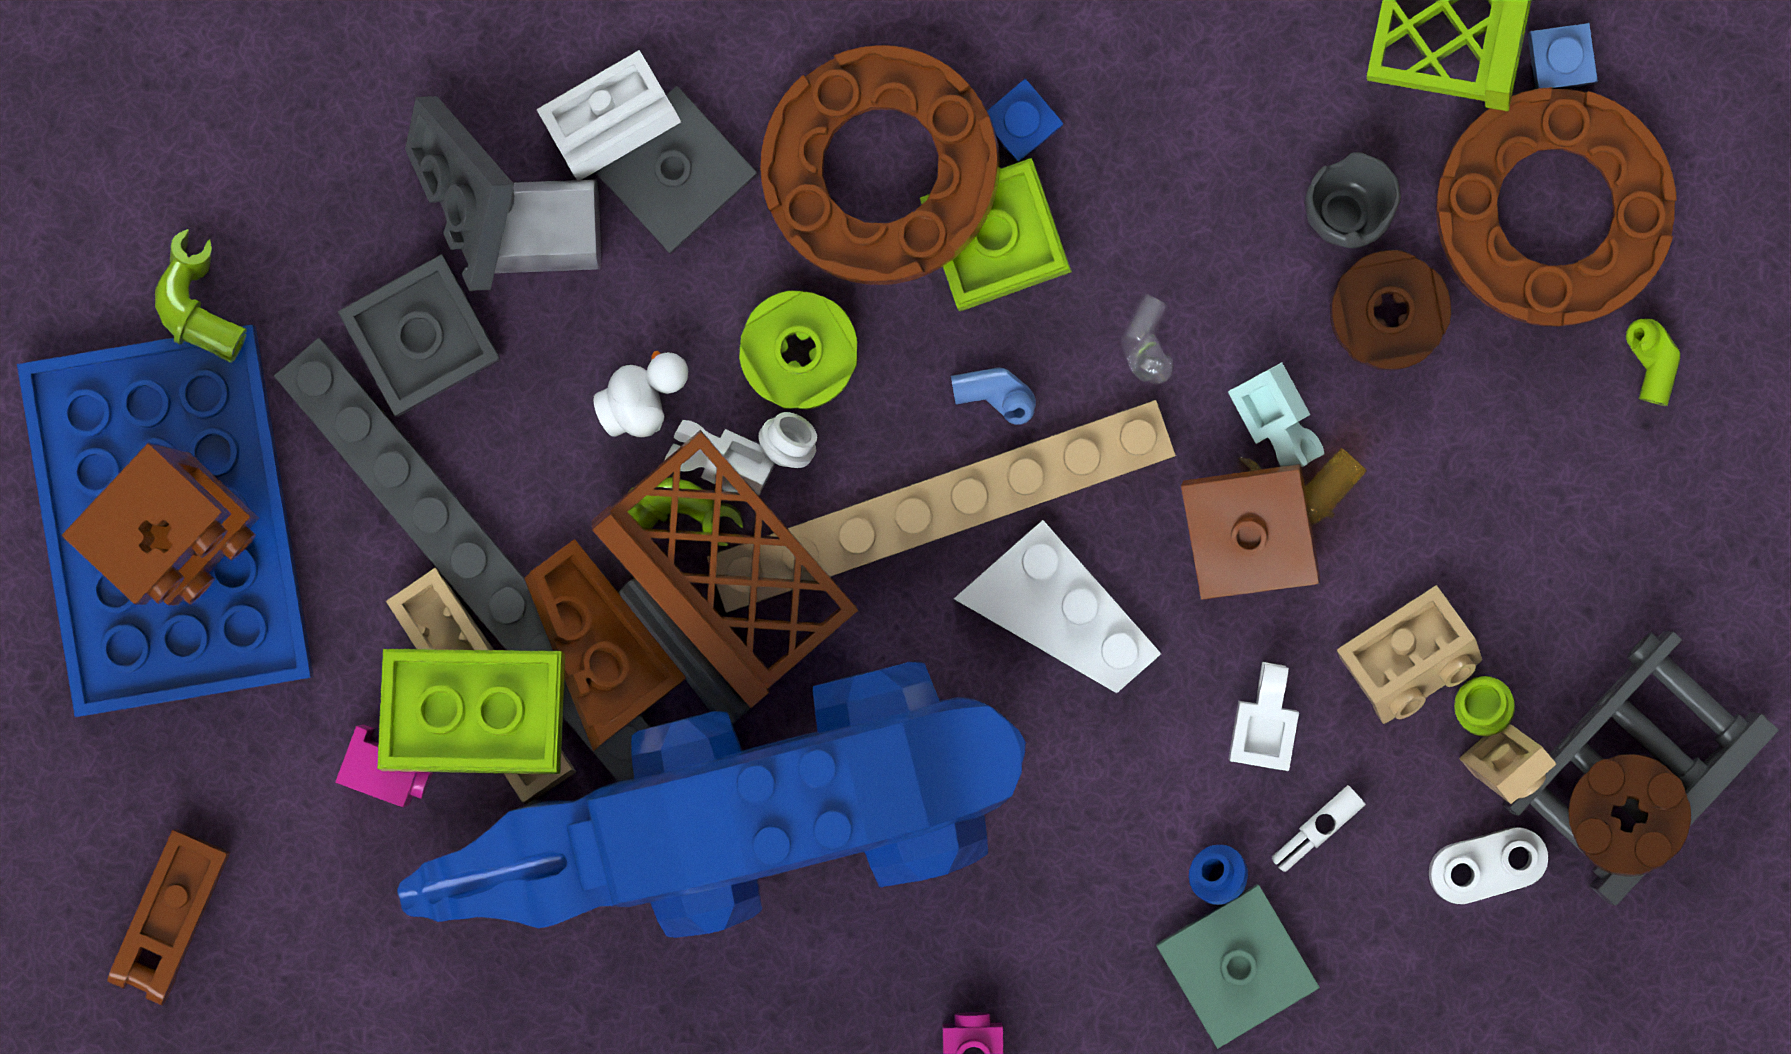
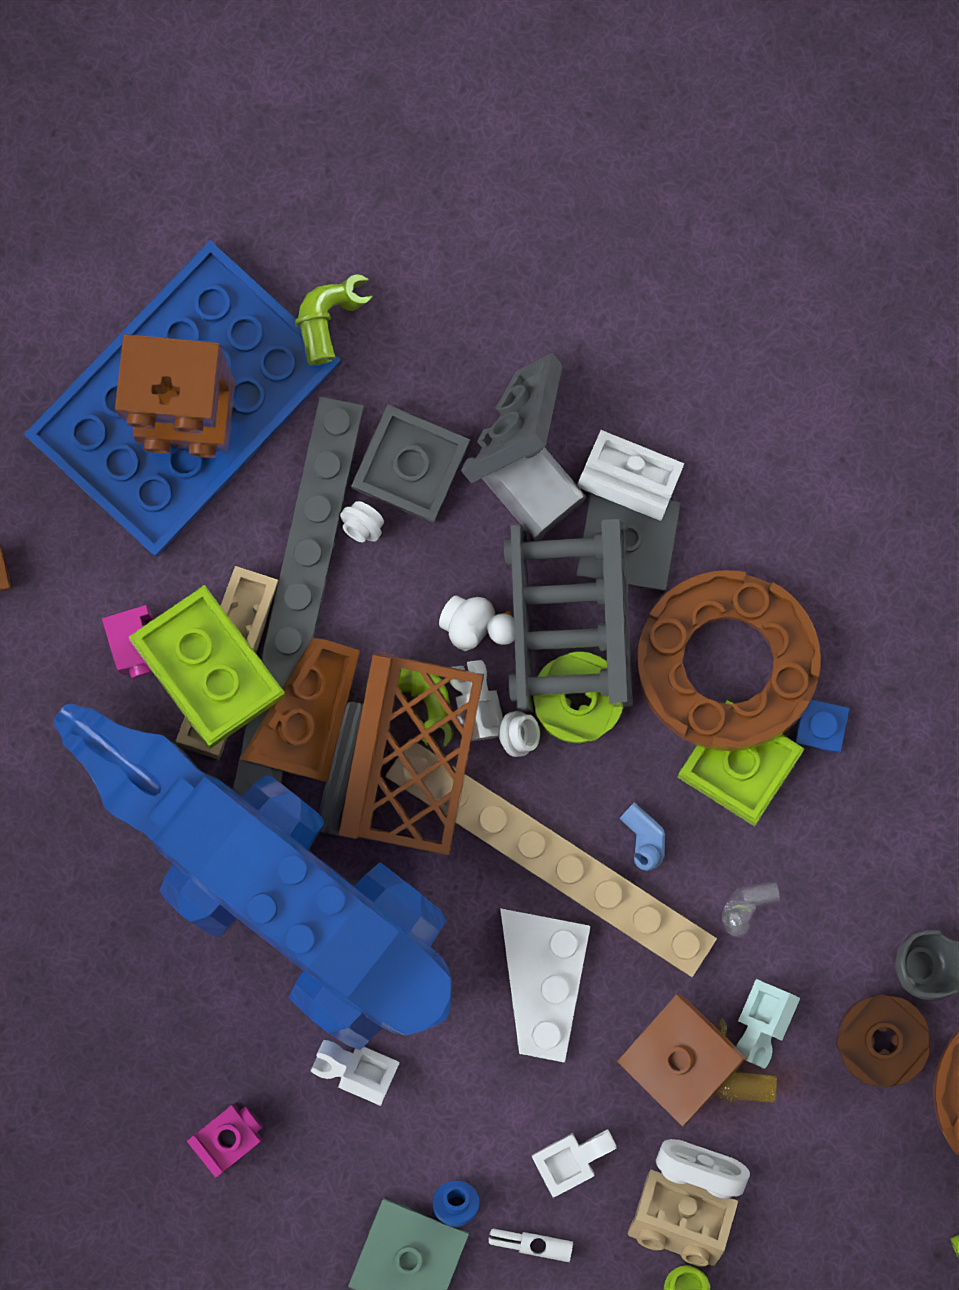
camera: 50 degrees right, 5 degrees down
(441, 433) = (362, 522): none -> white plate
(761, 269) = (609, 636): none -> dark grey fence
(1011, 868) = (362, 1072): none -> white plate
(1375, 595) = (703, 1168): none -> white plate

